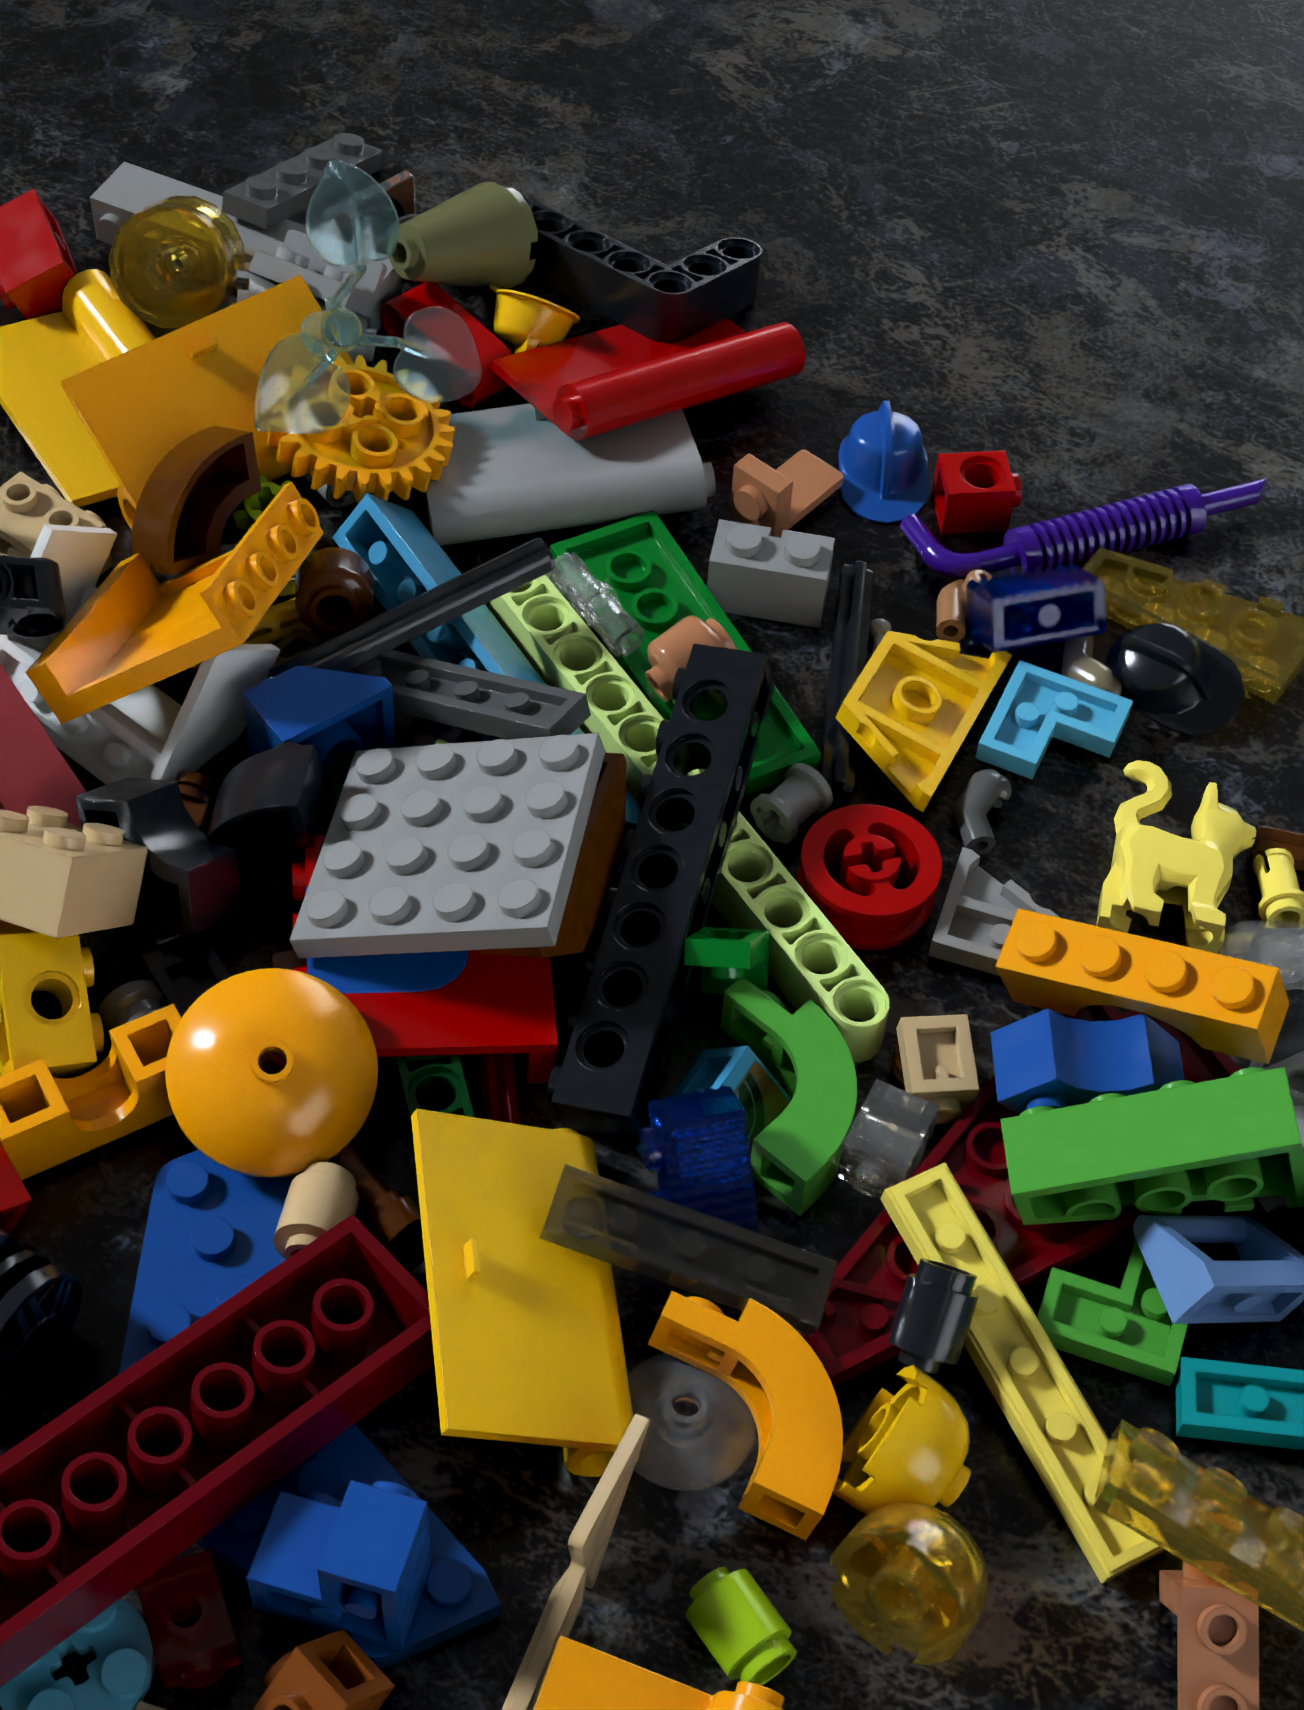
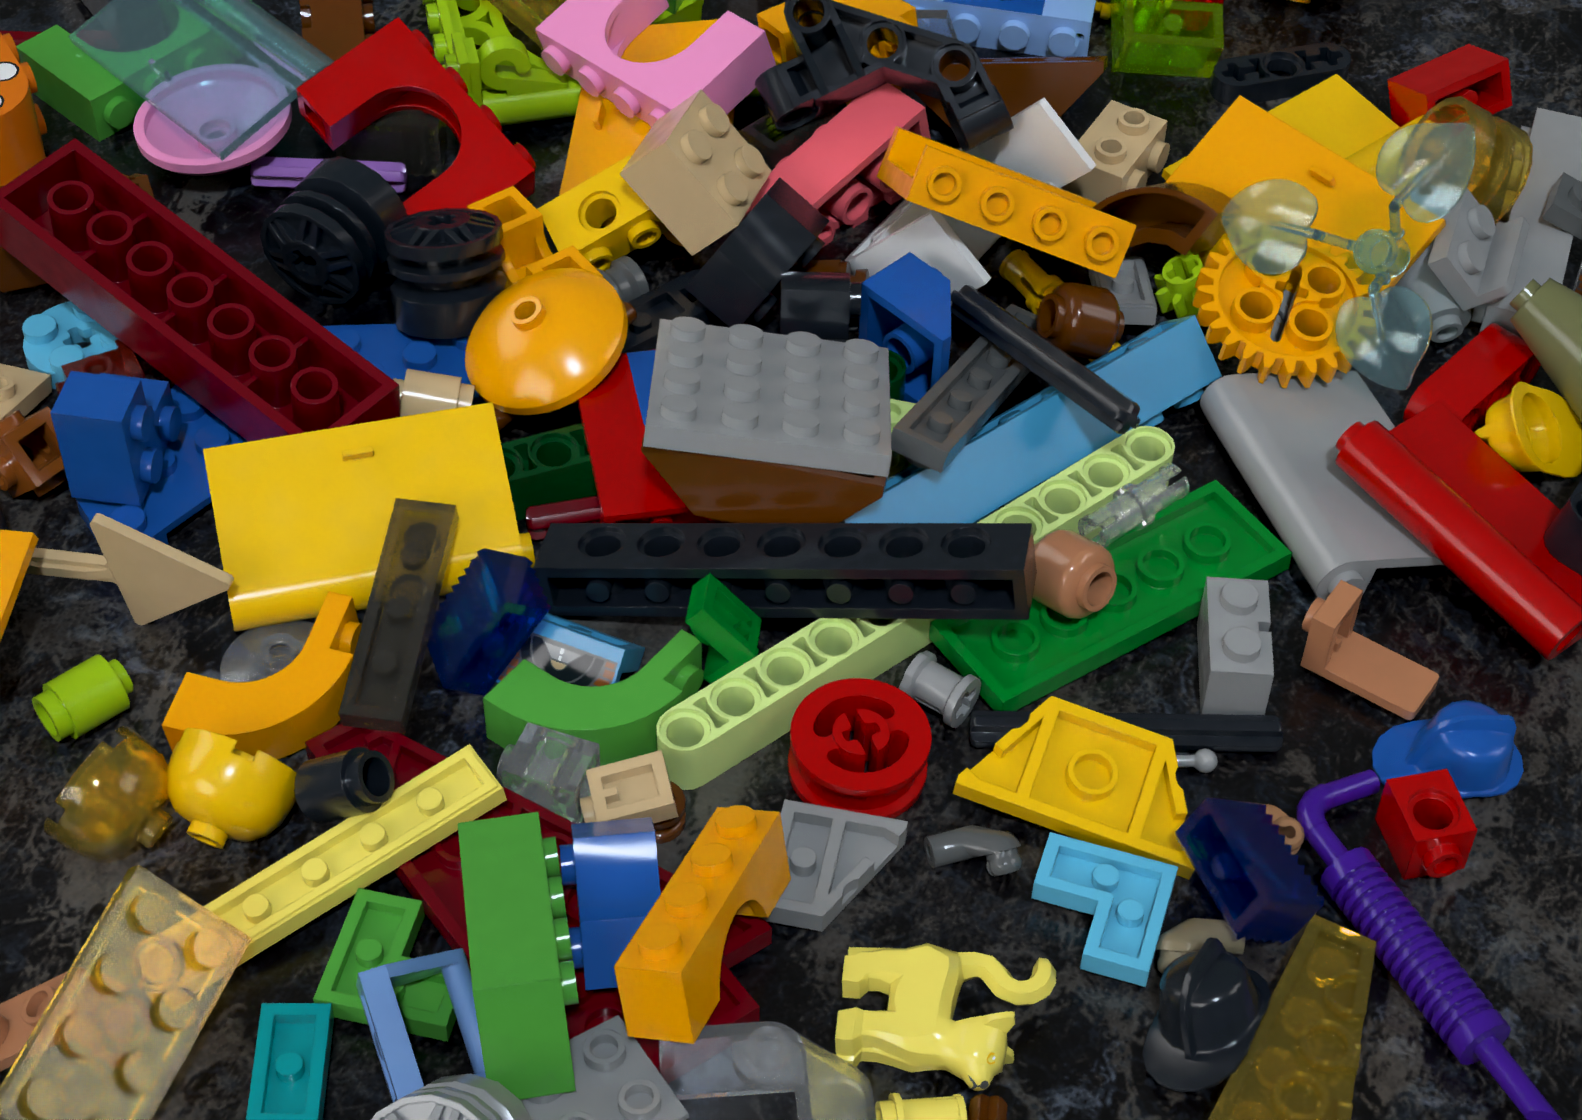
camera: 85 degrees right, 5 degrees down
(110, 1176) = (444, 270): none -> black wheel

